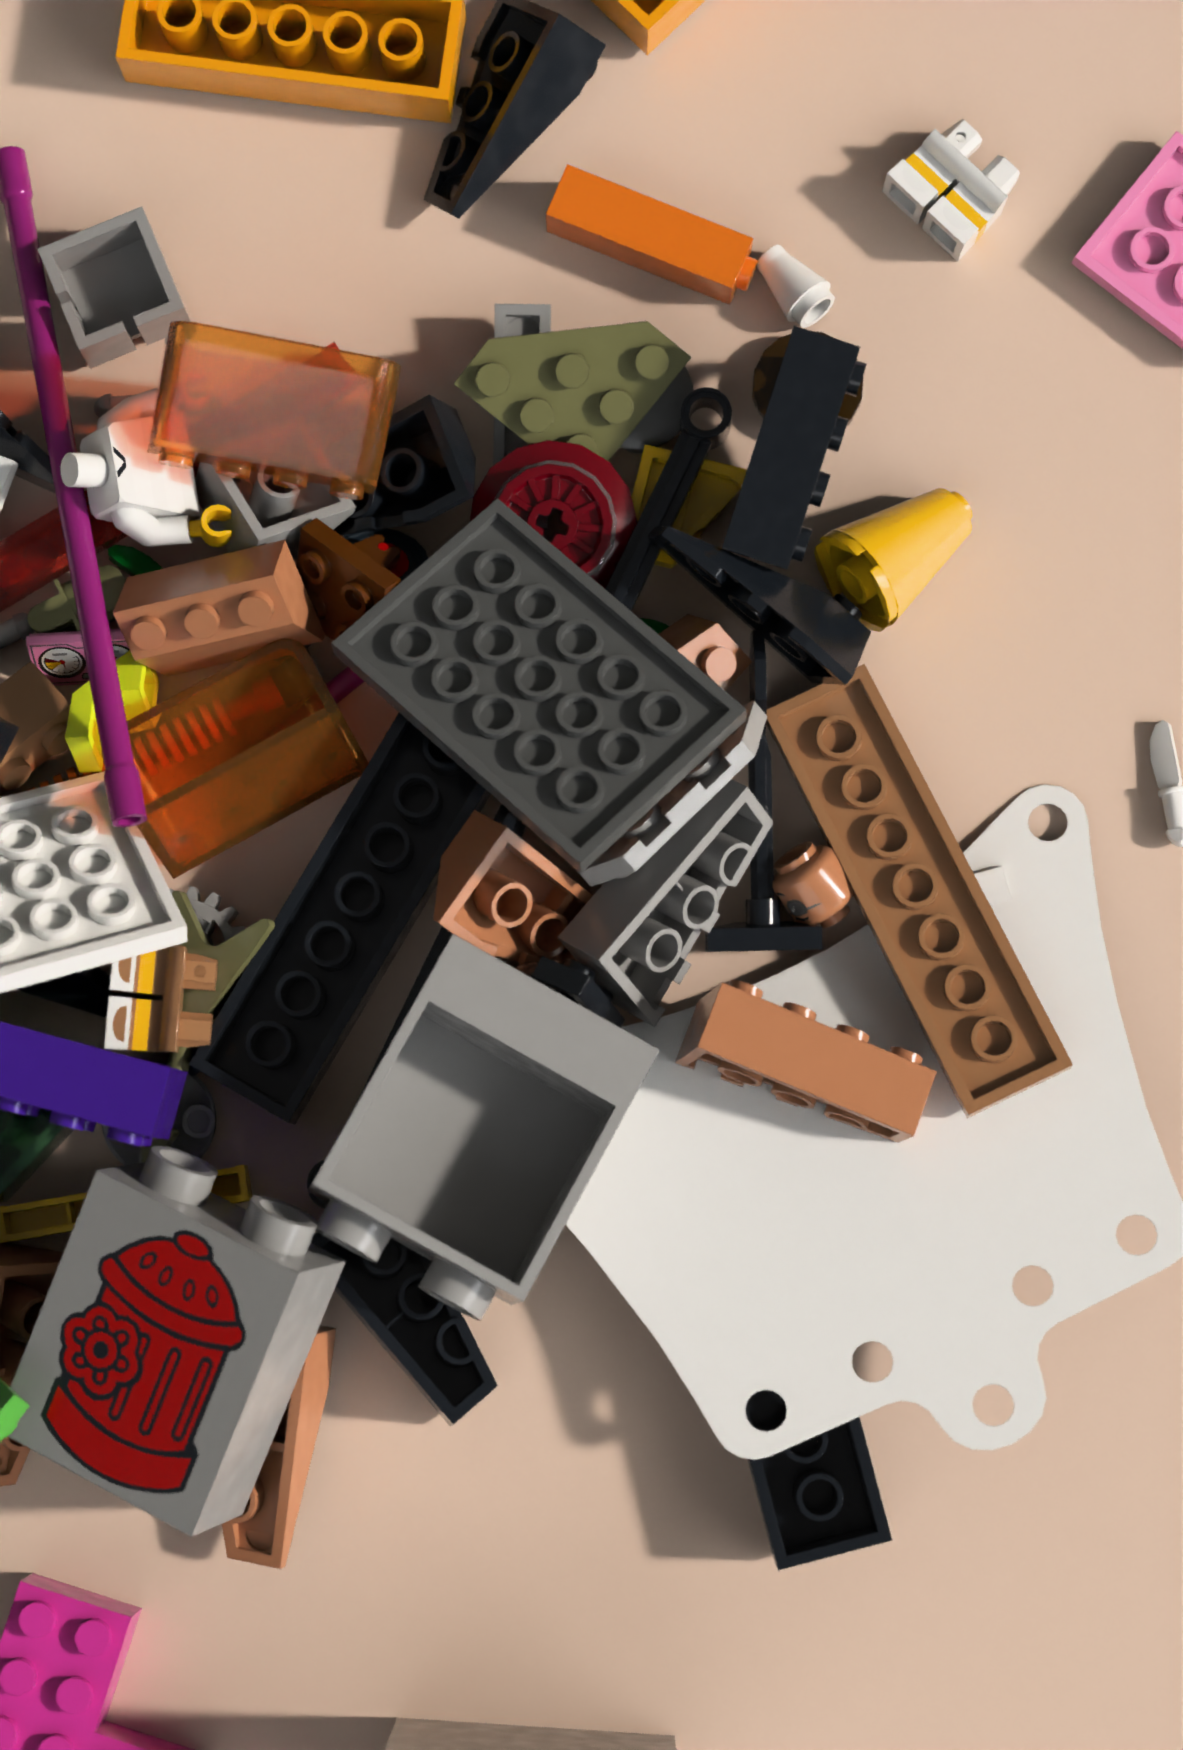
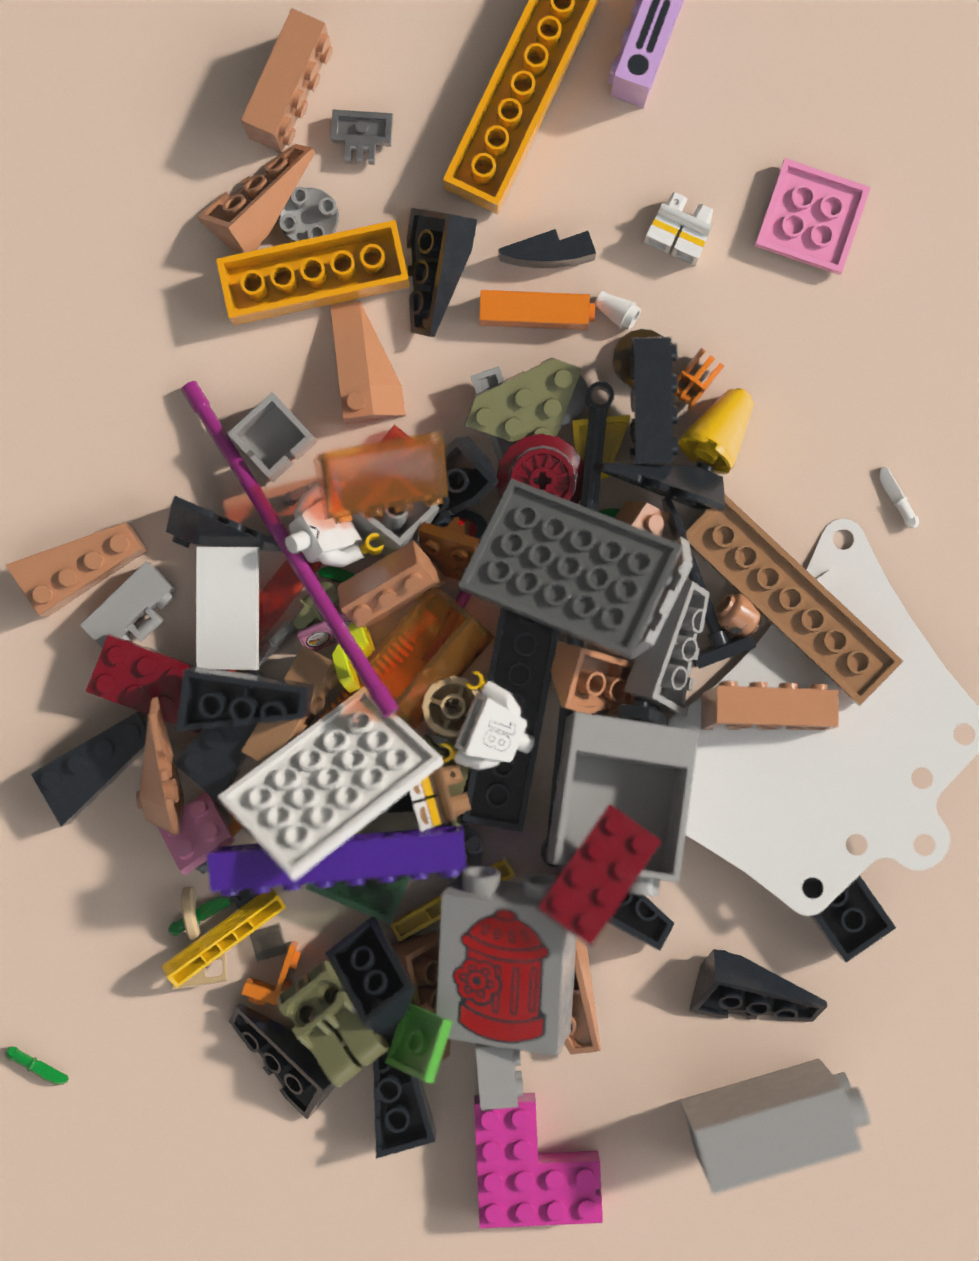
camera: 20 degrees left, 5 degrees up
(82, 1543) = (497, 1077): none -> light grey brick
(253, 866) = (437, 708): none -> tan cylinder
(295, 916) = (490, 729): none -> white torso
(316, 240) = (365, 374): none -> nougat wedge
(382, 1233) = (599, 875): none -> dark red plate
(579, 1550) = (740, 986): none -> black wedge
(709, 146) = (548, 251): none -> black slope
(882, 452) = (693, 381): none -> orange arm

